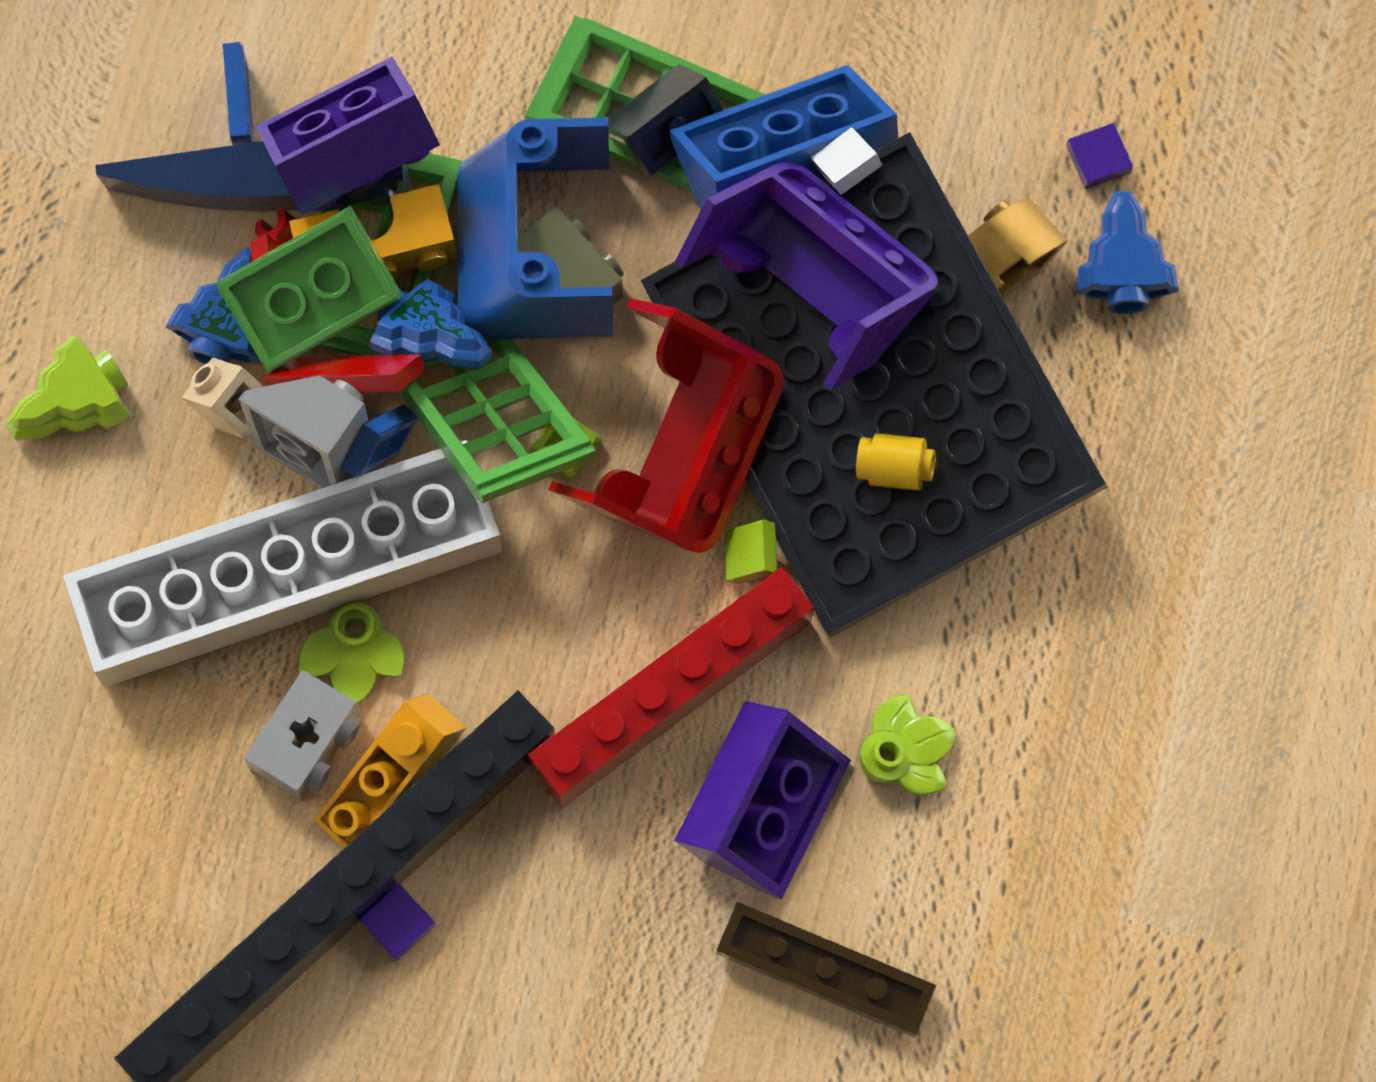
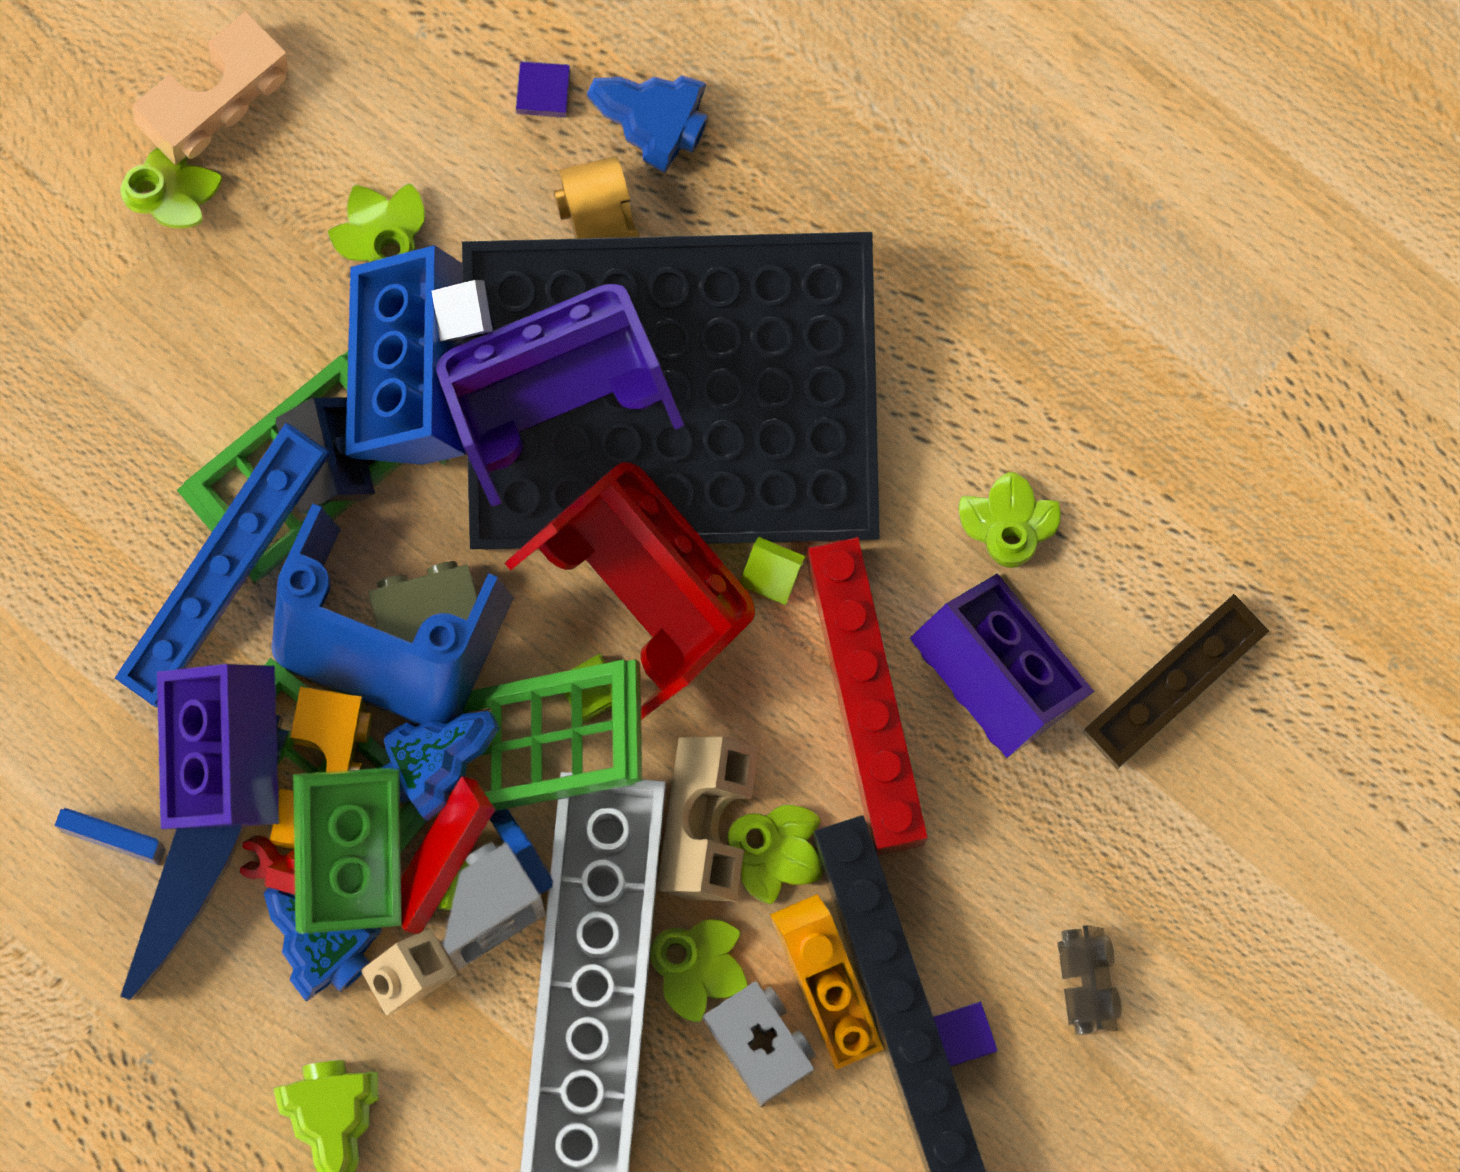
camera: 65 degrees left, 5 degrees up
(491, 680) = (784, 851): none -> lime plate
(517, 579) = (705, 780): none -> tan arch
(523, 1006) = (1096, 998): none -> clear smoke hinge
(532, 76) = (224, 561): none -> blue tile
(895, 461) = (764, 402): yellow brick -> none
(902, 72) = (378, 223): none -> lime plate

